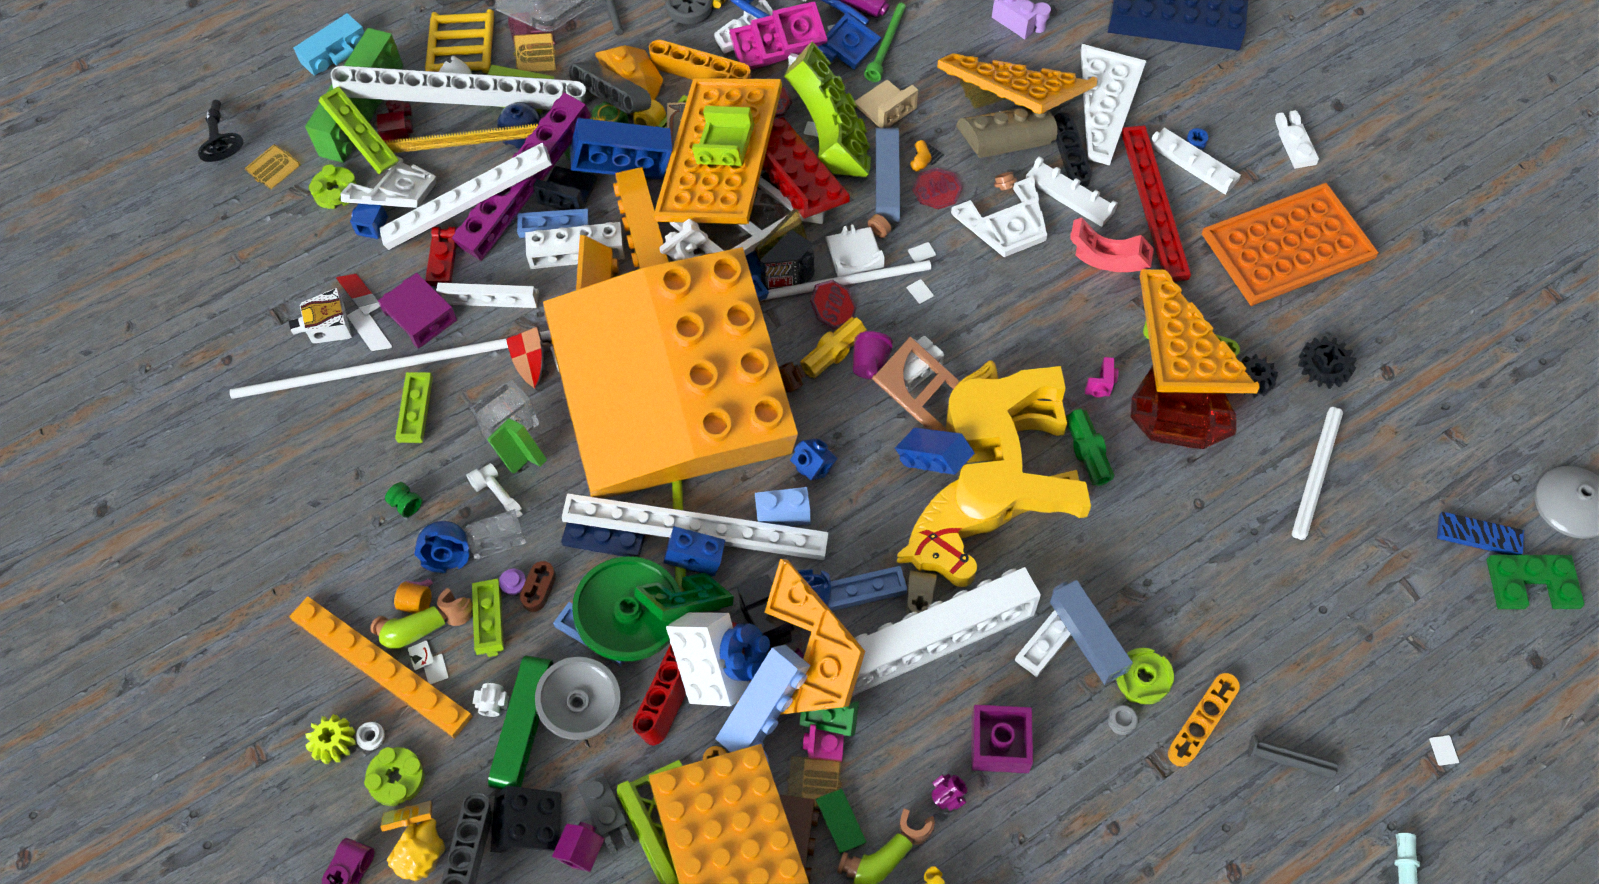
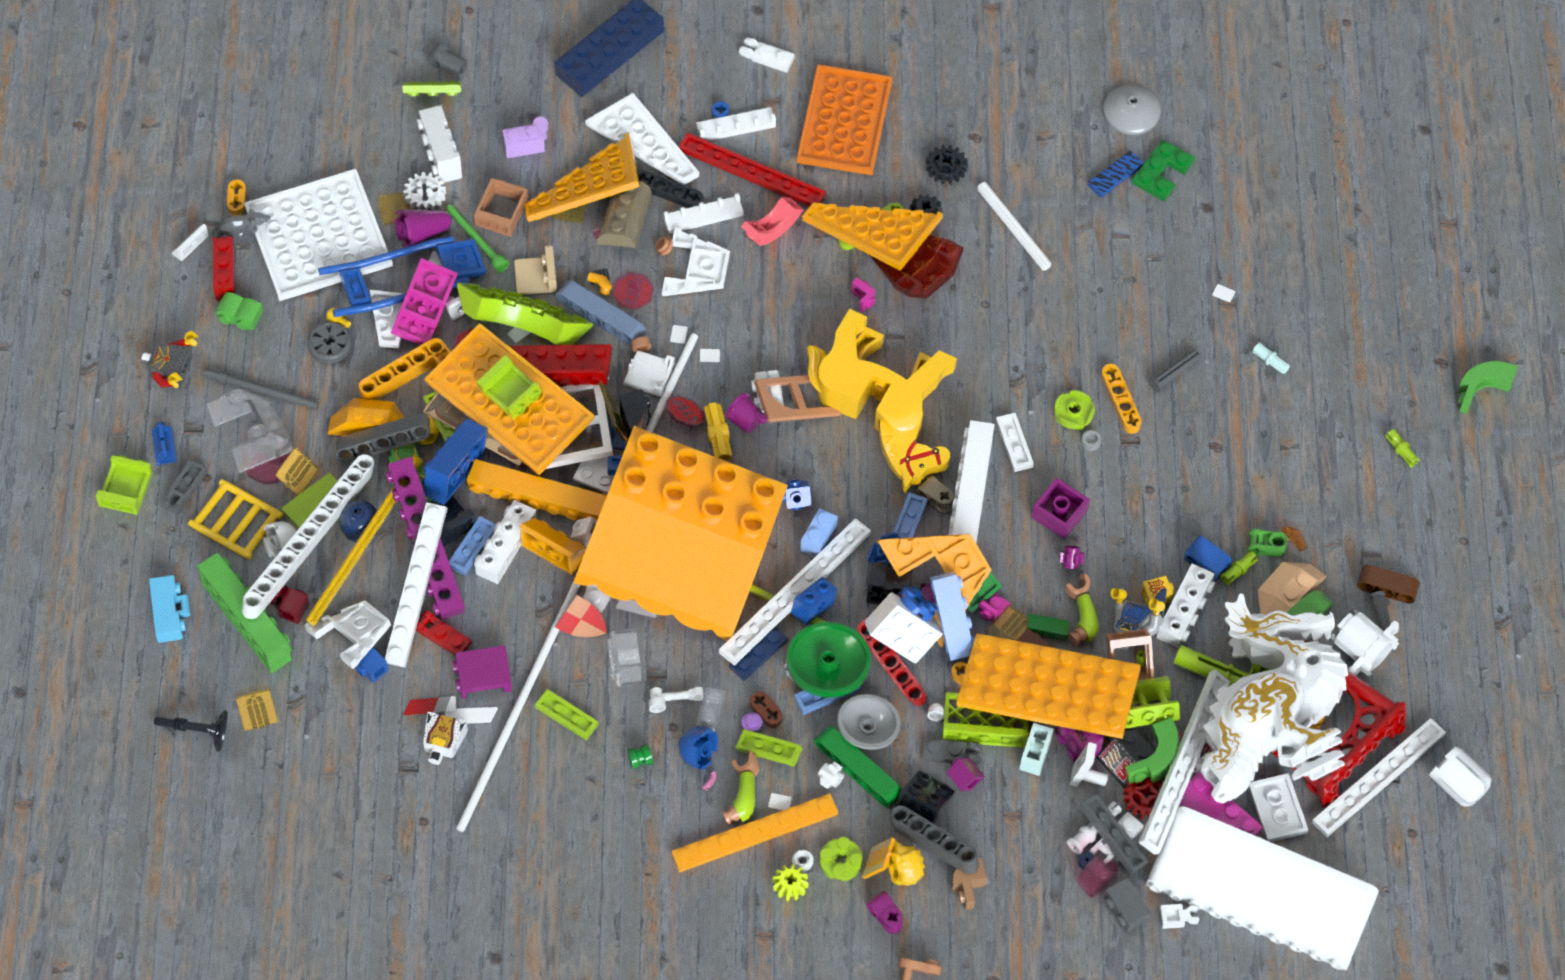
camera: 60 degrees left, 0 degrees up
(327, 178) = (316, 664): lime plate -> none
(358, 130) = (298, 621): lime plate -> none
(412, 597) = (722, 786): light orange piece -> none
(420, 655) = (764, 805): white sticker -> none
(488, 295) = (507, 619): white hinge -> none
(515, 446) = (654, 658): bright green panel -> none
(645, 763) = (935, 712): none -> white hinge
(683, 244) = (578, 467): white hips -> none
(700, 596) = (852, 614): green plate -> none
(928, 24) = (494, 222): none -> nougat window
(934, 450) = (849, 420): blue brick -> none
(1089, 447) = (906, 335): green piece -> none
(1090, 631) = (1030, 416): sand blue brick -> none

